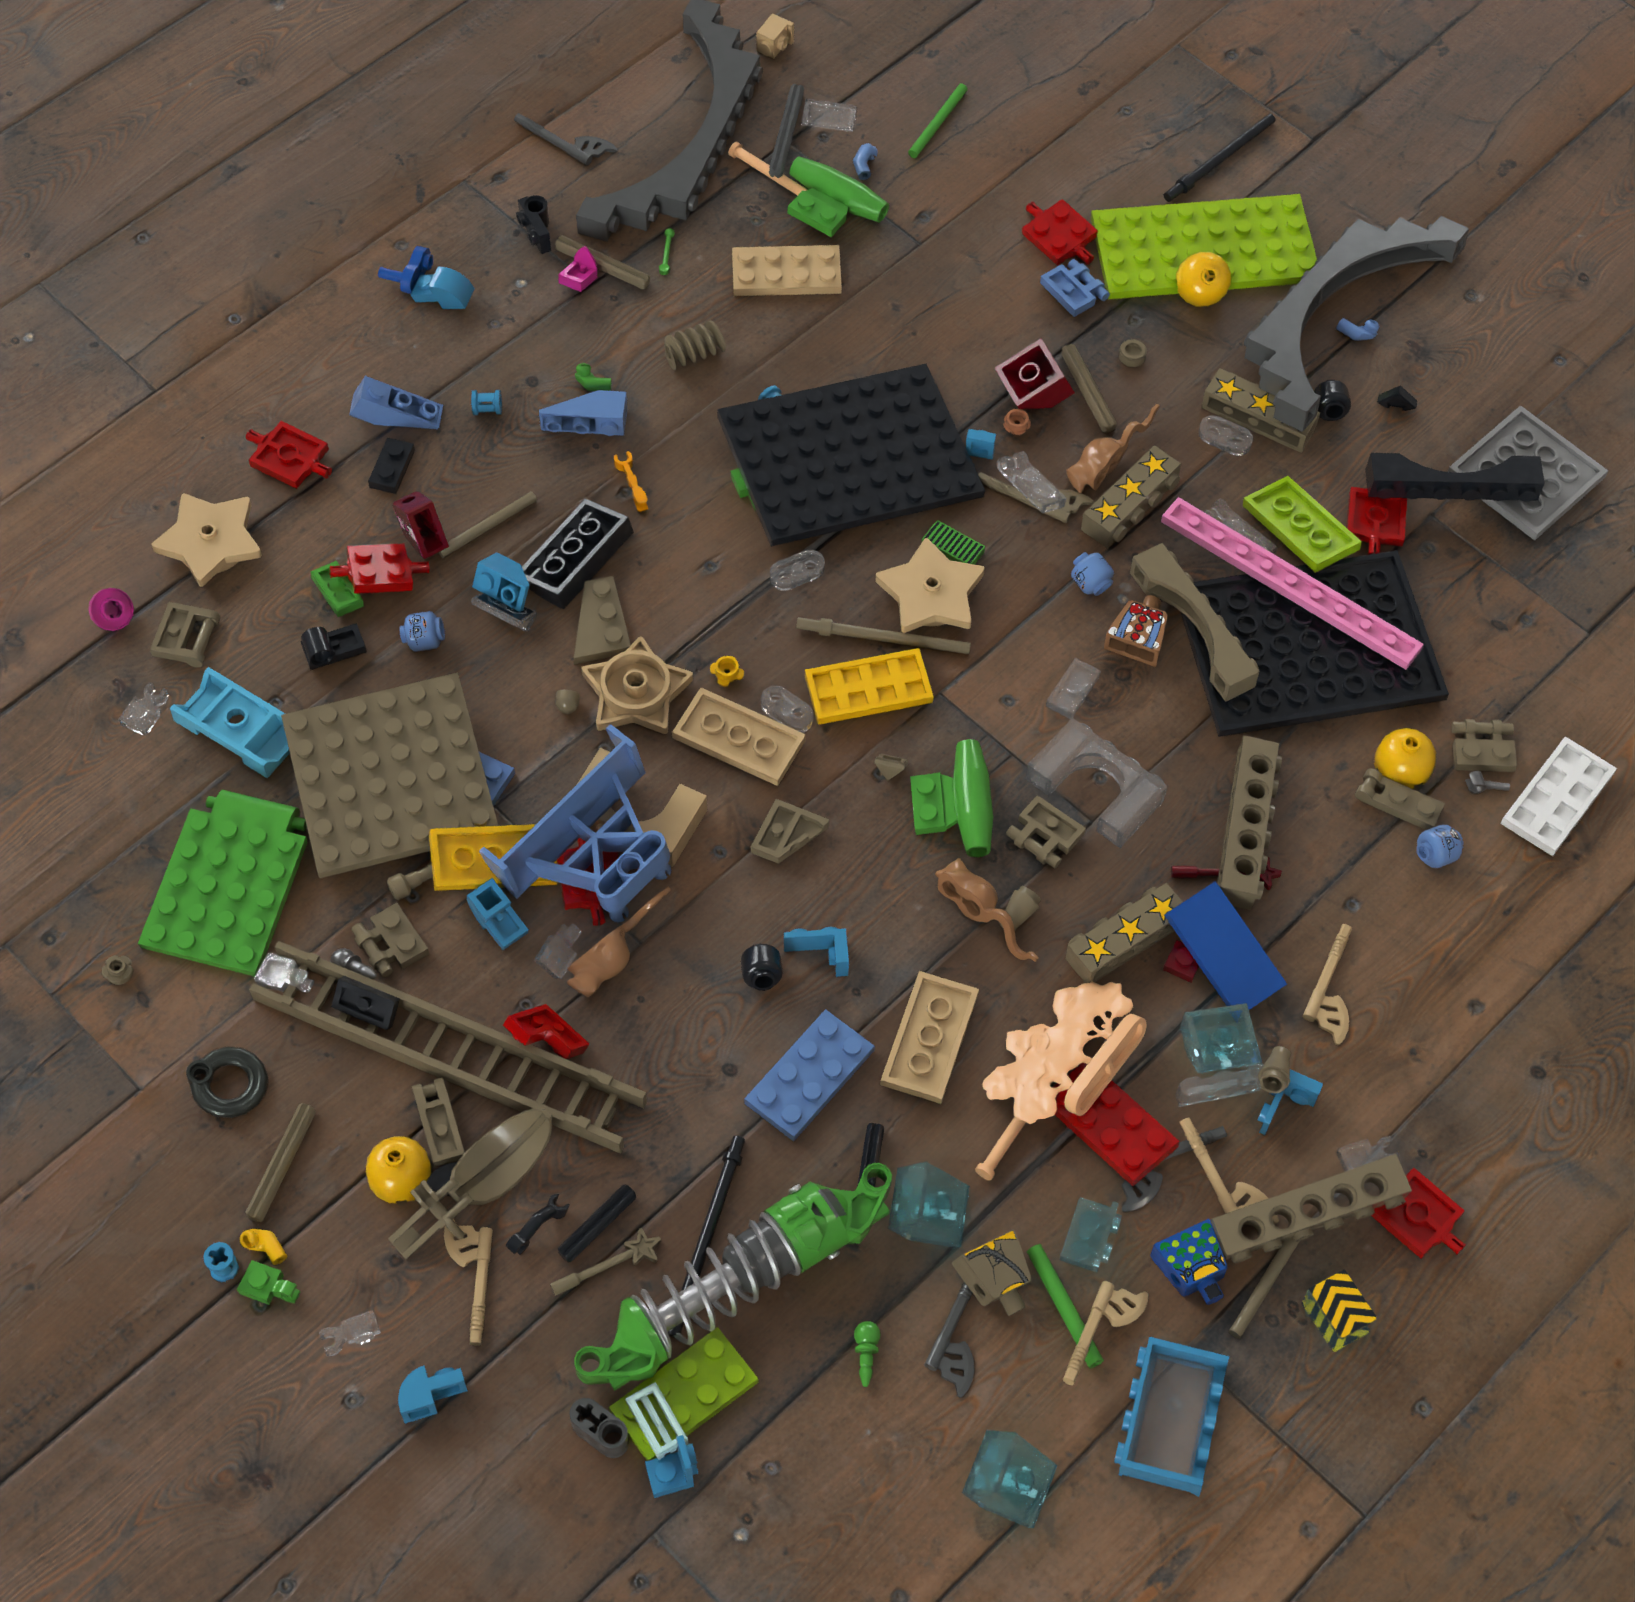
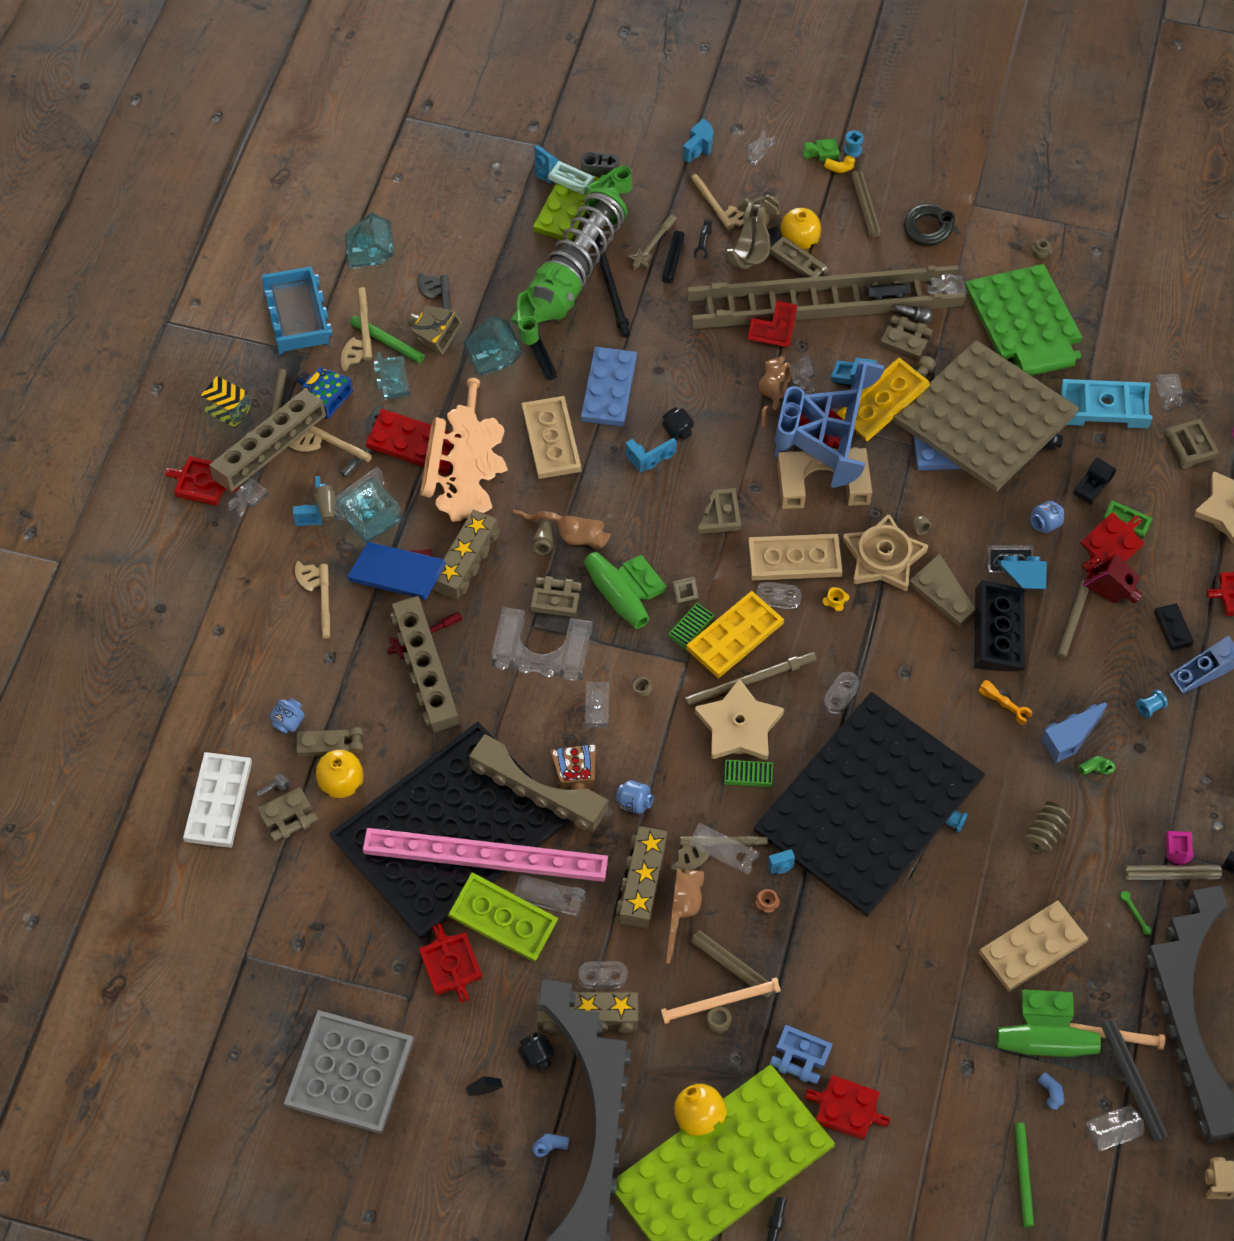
camera: 150 degrees right, 0 degrees up
(867, 1337) = (485, 268): bright green bar -> none
(910, 724) = (691, 625): none -> bright green tile
(1007, 675) = (639, 685): none -> dark tan hinge
(1034, 378) = (775, 938): dark red slope -> none
(1124, 358) = (720, 1000): none -> light nougat bar
(1398, 477) = (448, 987): black arch -> none

